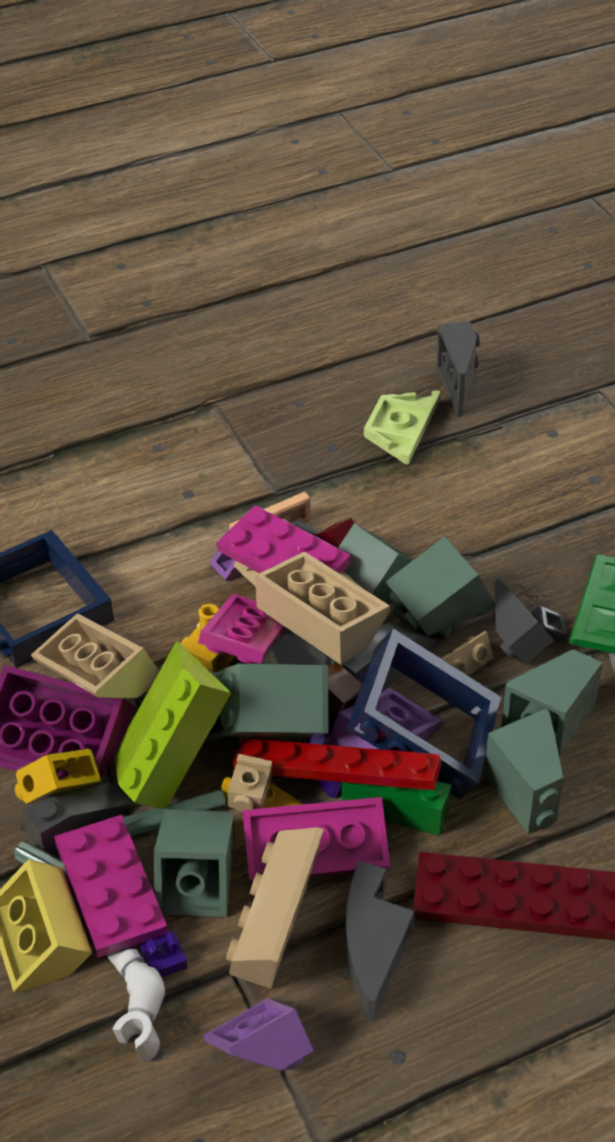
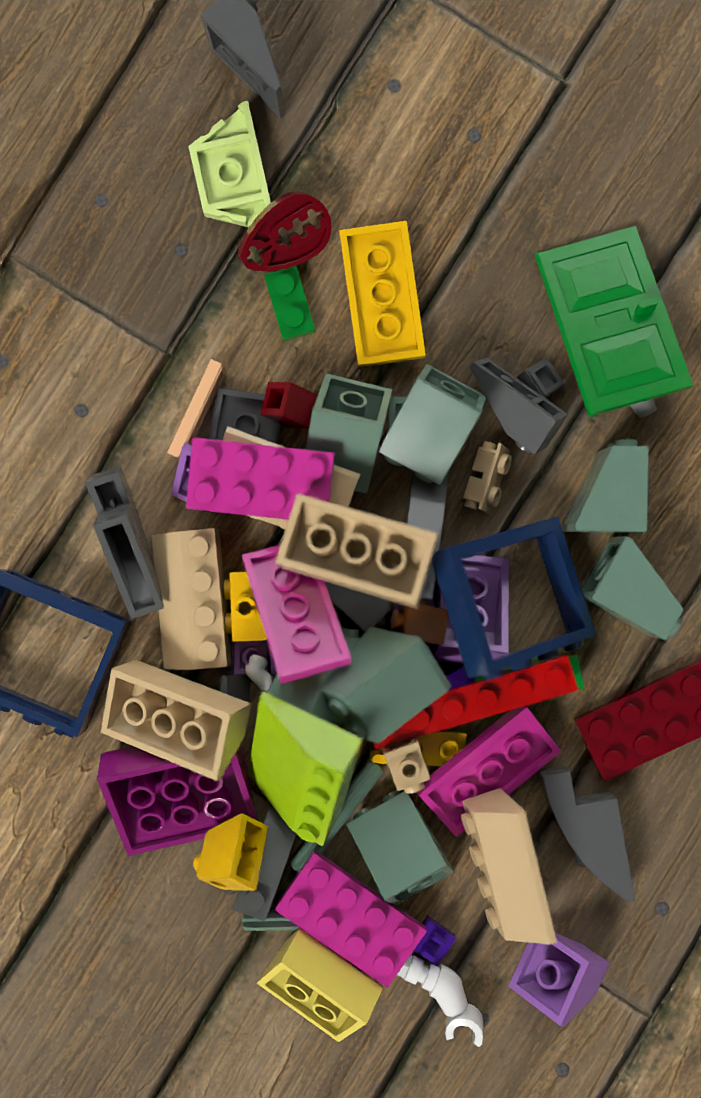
camera: 30 degrees left, 45 degrees up
(153, 560) = (124, 542): none -> dark grey slope
(176, 611) = (193, 599): none -> tan slope
(386, 502) = (289, 303): none -> green plate
(418, 474) = (280, 214): none -> dark red piece
(462, 516) = (382, 293): none -> yellow plate

